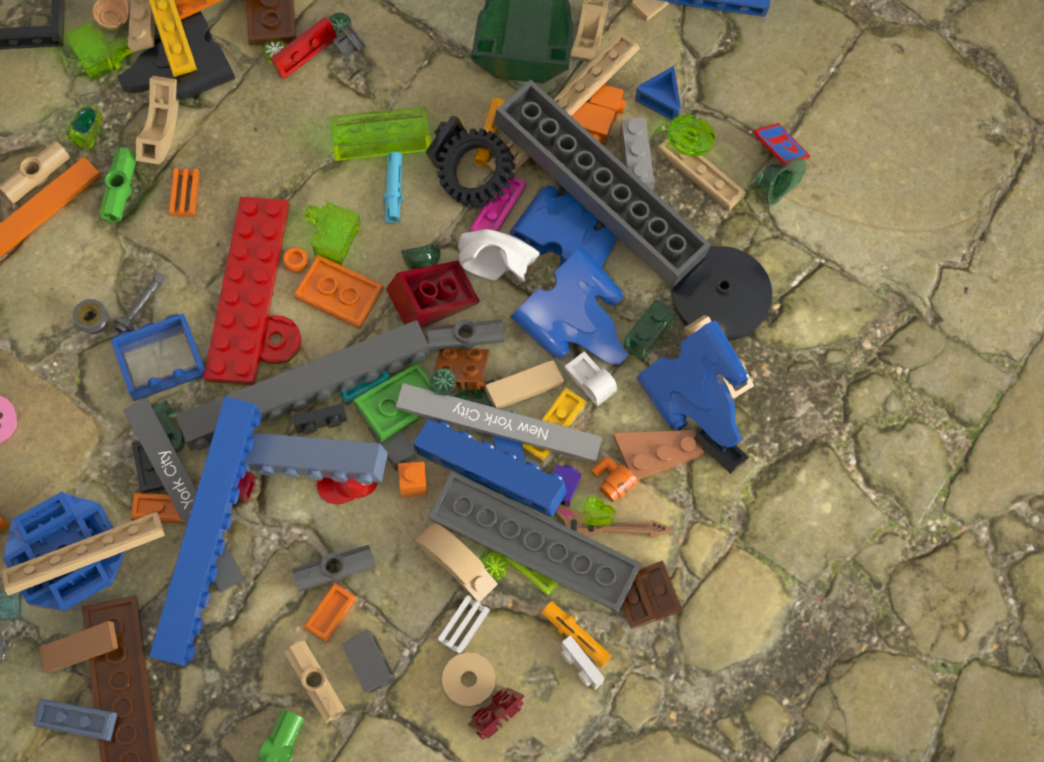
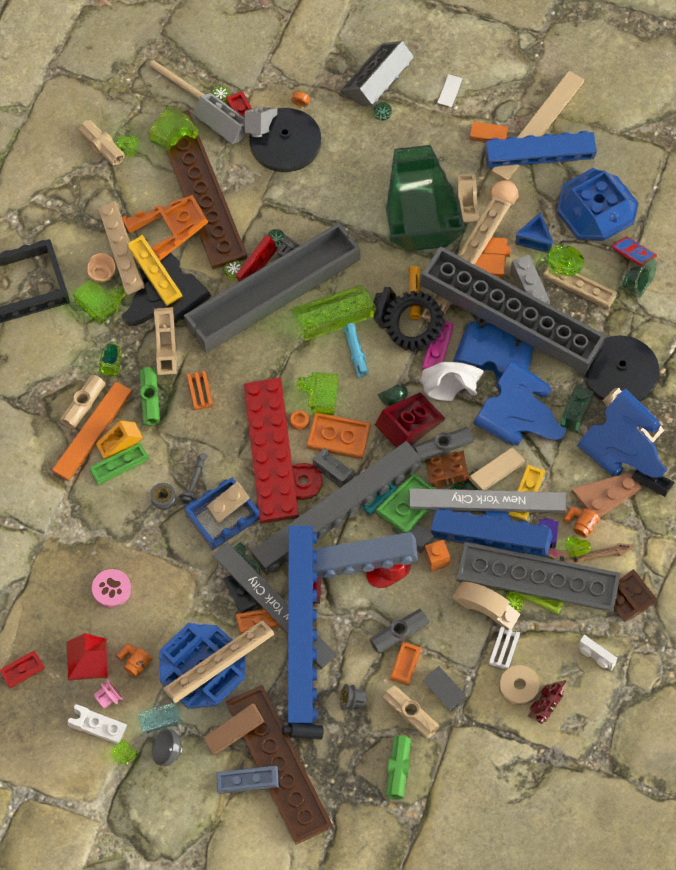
camera: 10 degrees left, 5 degrees down
(54, 261) = (119, 463): none -> bright green tile
(62, 229) = (119, 438): none -> light orange arch
(168, 344) = (228, 502): none -> tan plate
(168, 672) = (304, 731): none -> black cylinder
(245, 643) = (352, 697): none -> dark grey piece
(310, 421) = (351, 531): black plate -> none
(312, 83) = (272, 287): none -> dark grey piece
(317, 331) = (333, 468): none -> dark grey hinge
(442, 381) = (439, 480): clear green tile -> none
(552, 613) = (565, 624): light orange pin -> none
(594, 382) = (548, 456): white plate -> none
(642, 32) = (505, 190): none -> light nougat hair
(747, 94) = (591, 219): none -> blue piece

